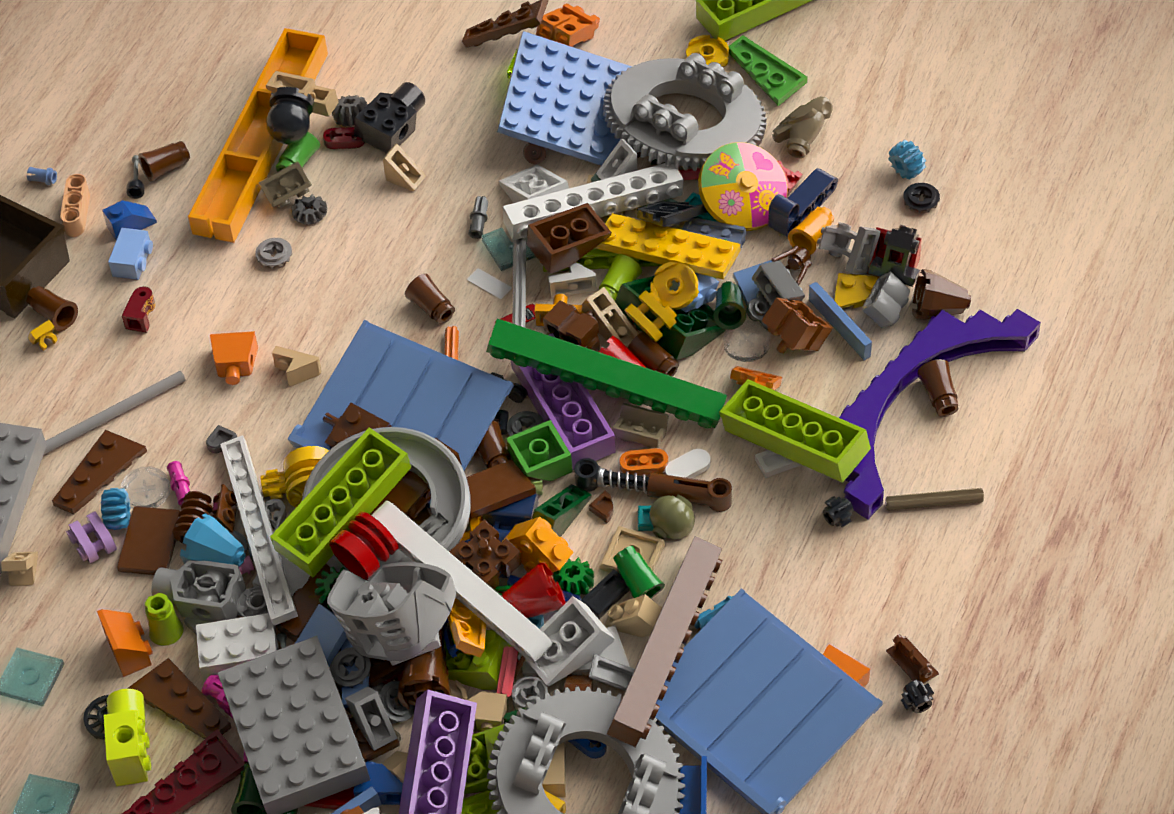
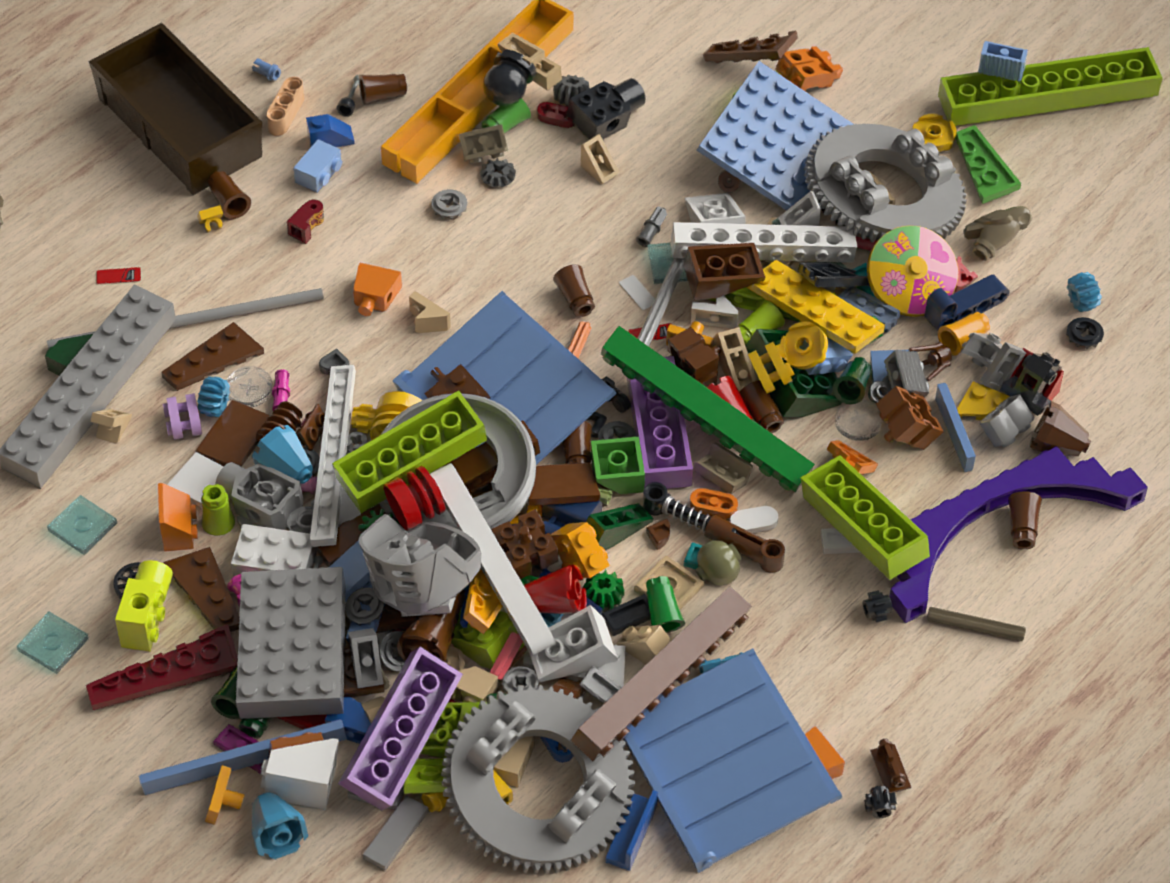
camera: 15 degrees right, 0 degrees up
(129, 594) = (195, 477): none -> white tile

